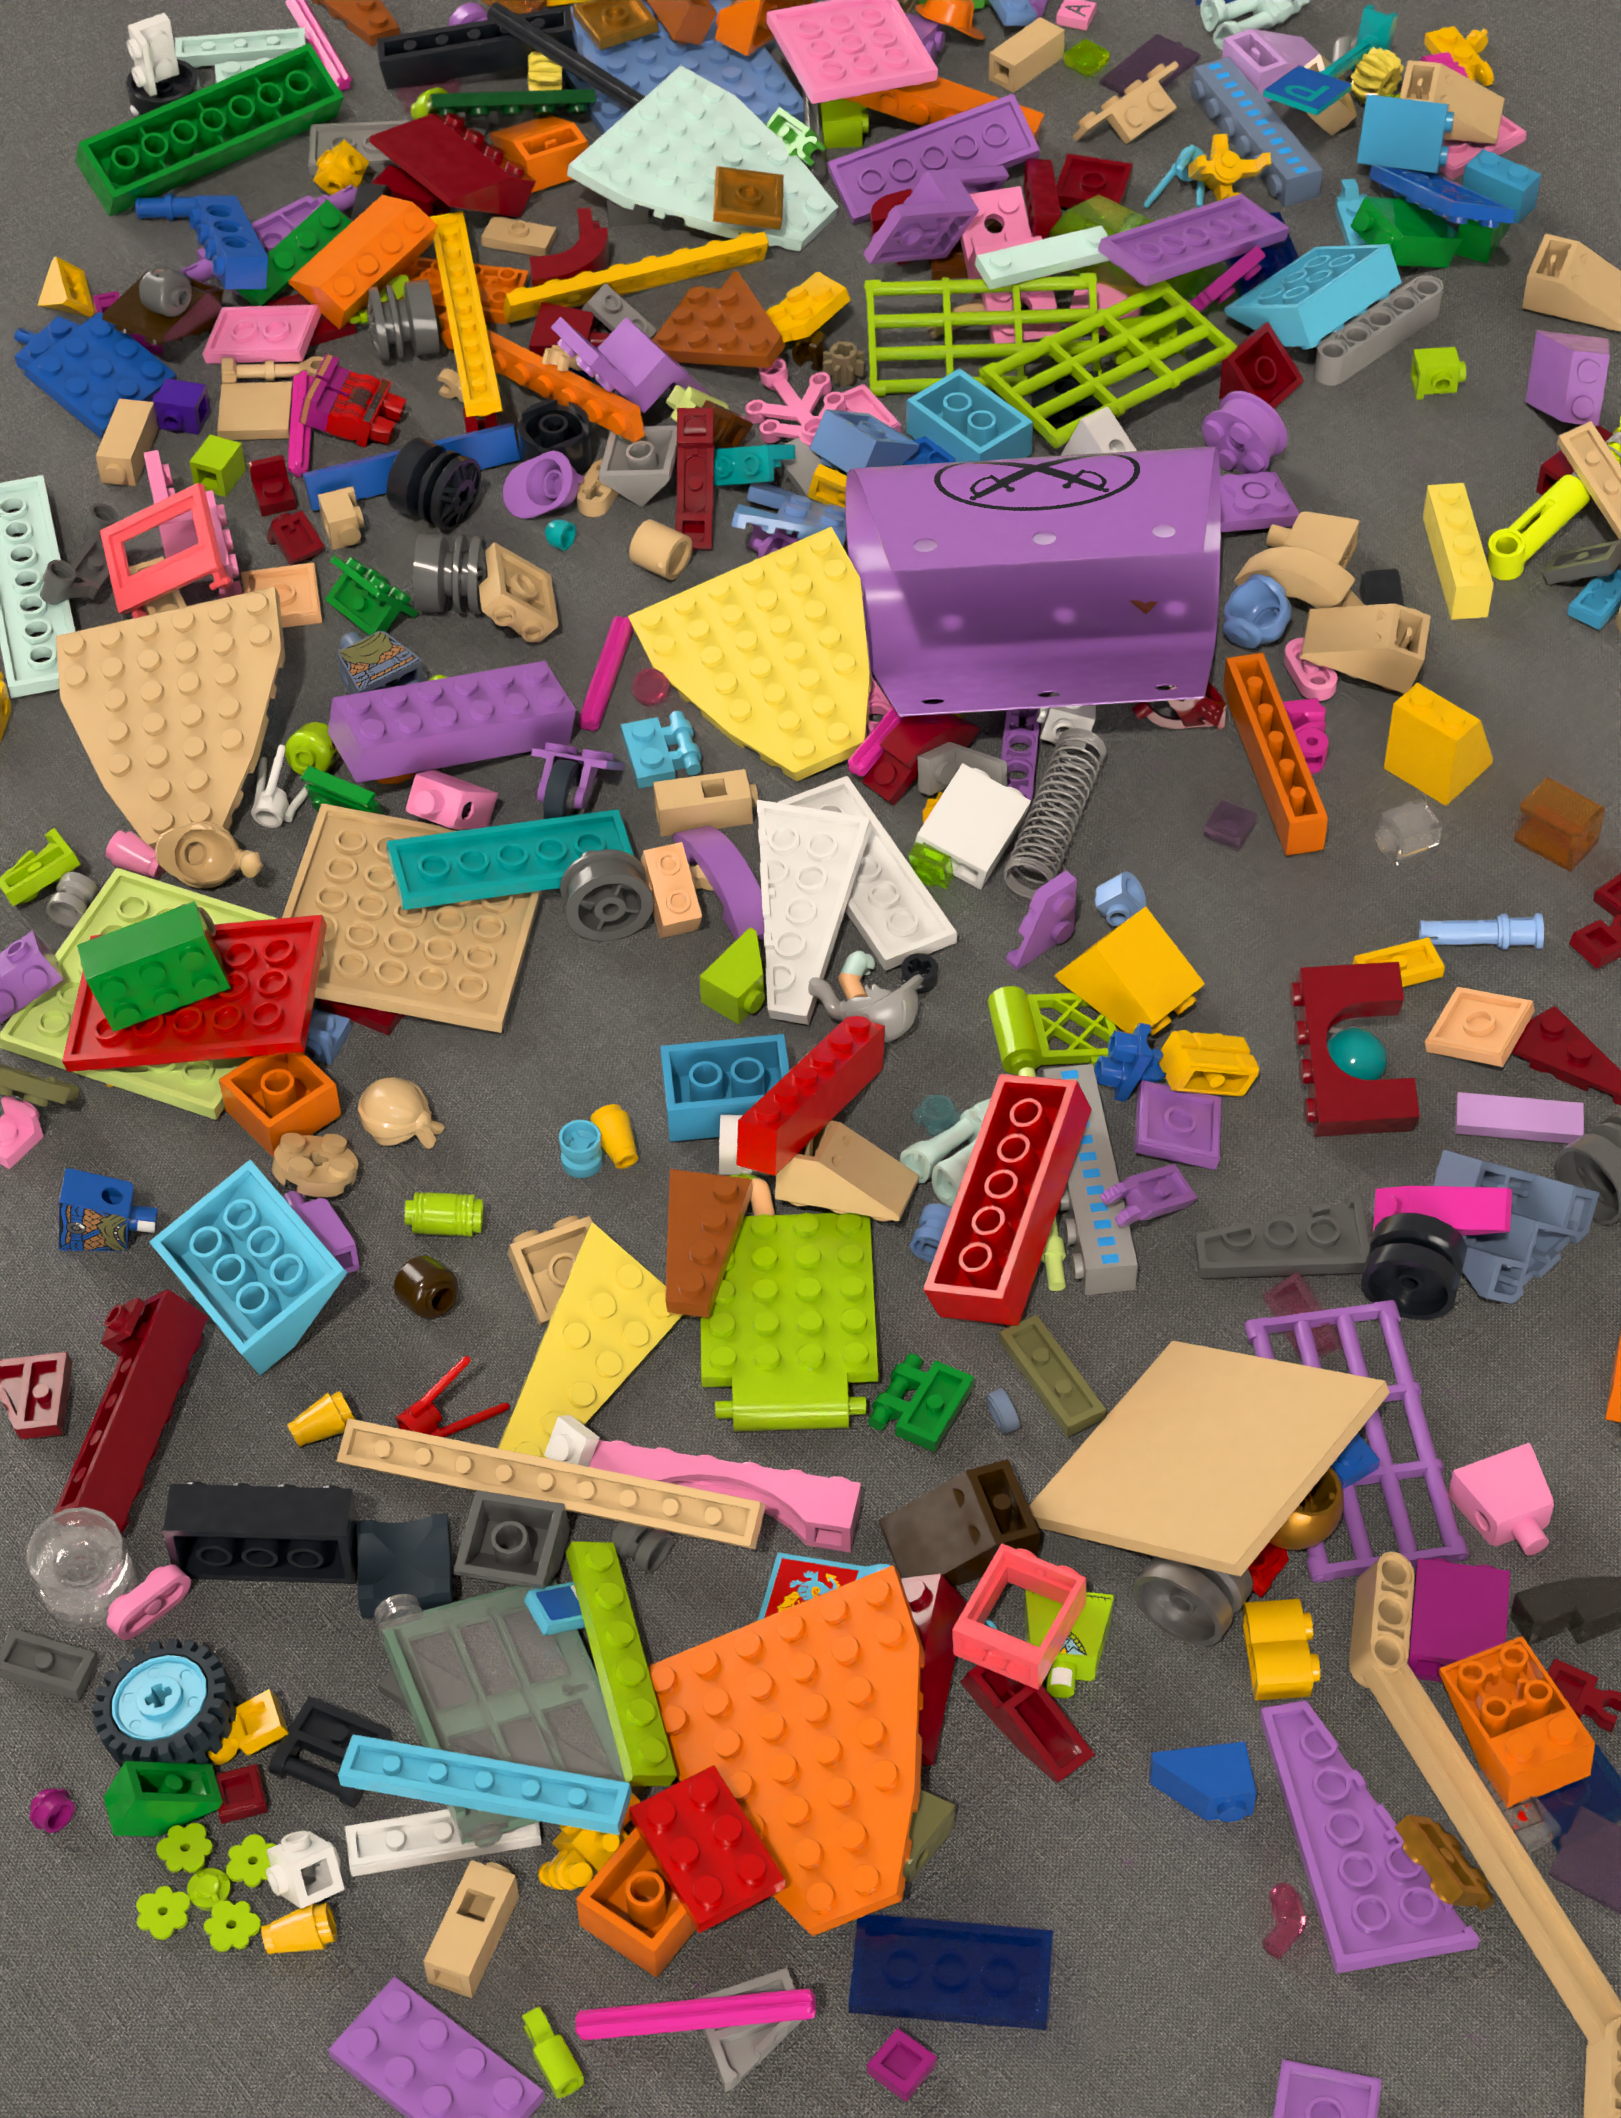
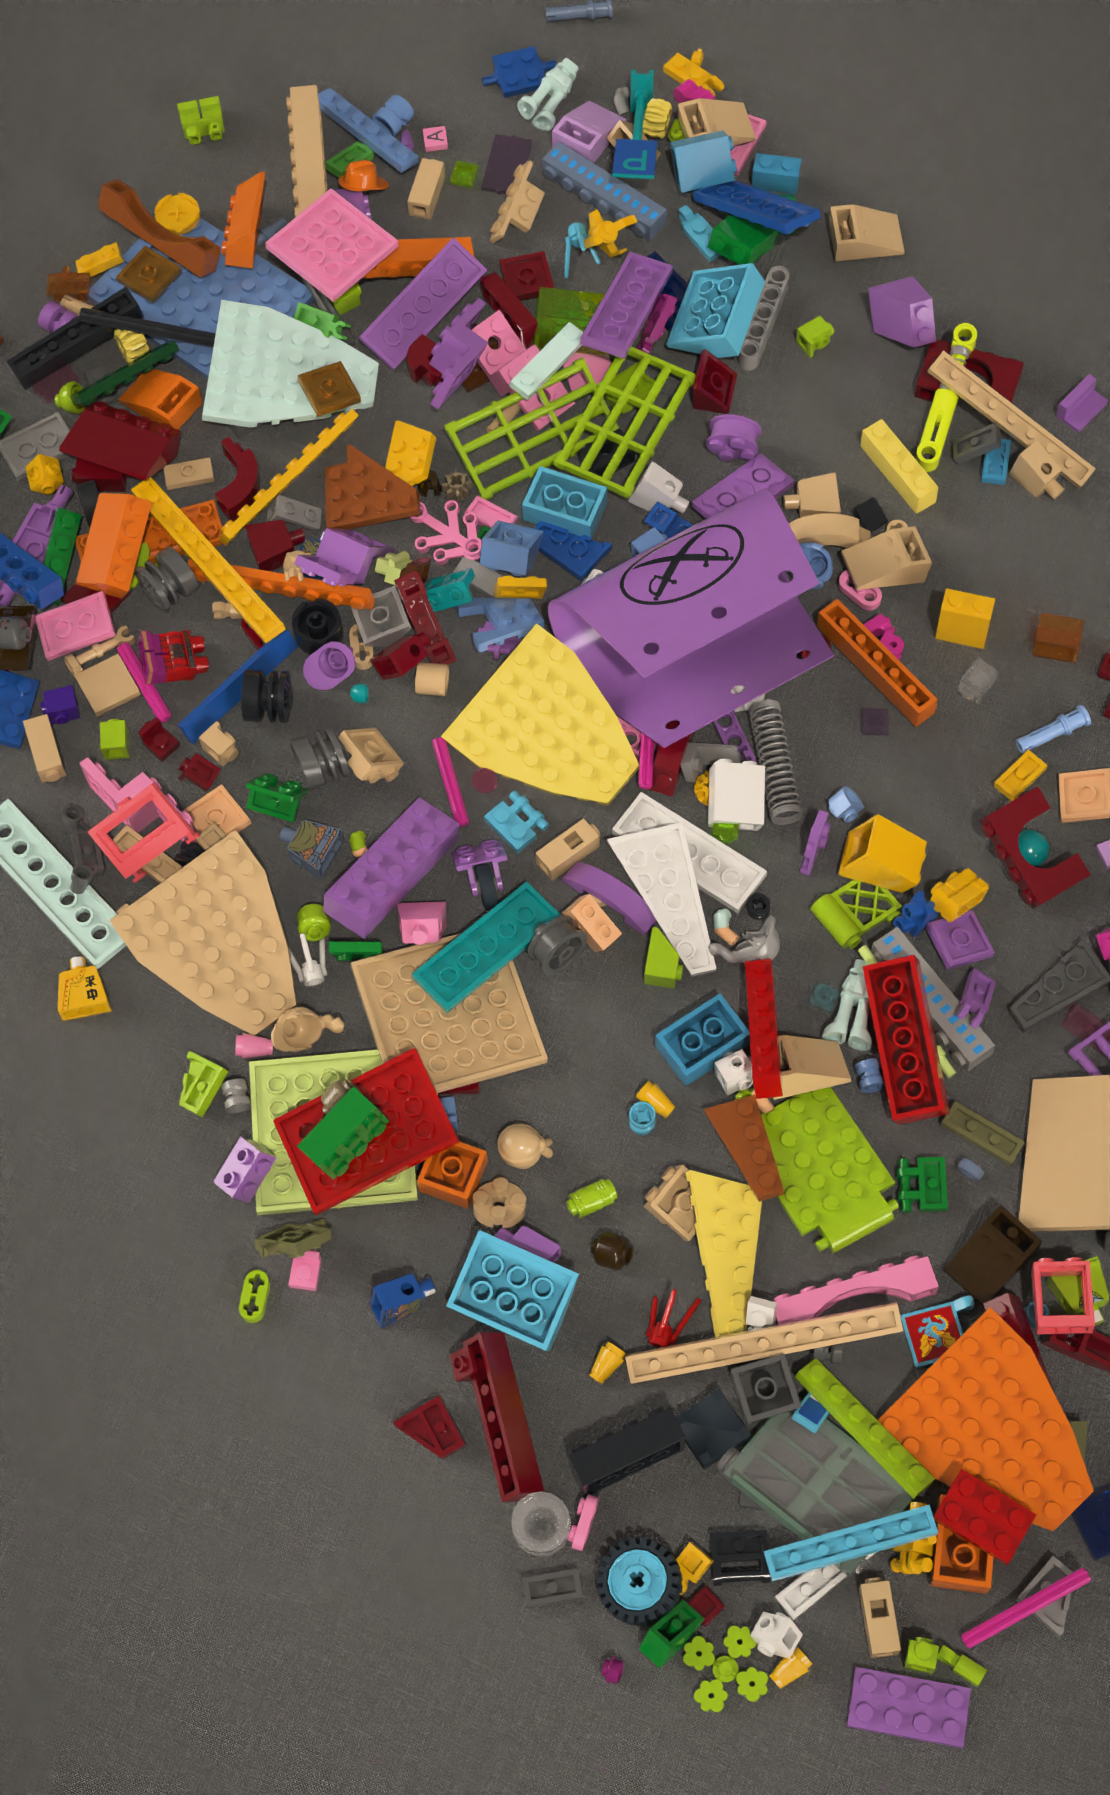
camera: 25 degrees left, 15 degrees up
(497, 2006) = (921, 1655): none -> lime brick
(629, 504) = (401, 656): none -> dark red torso

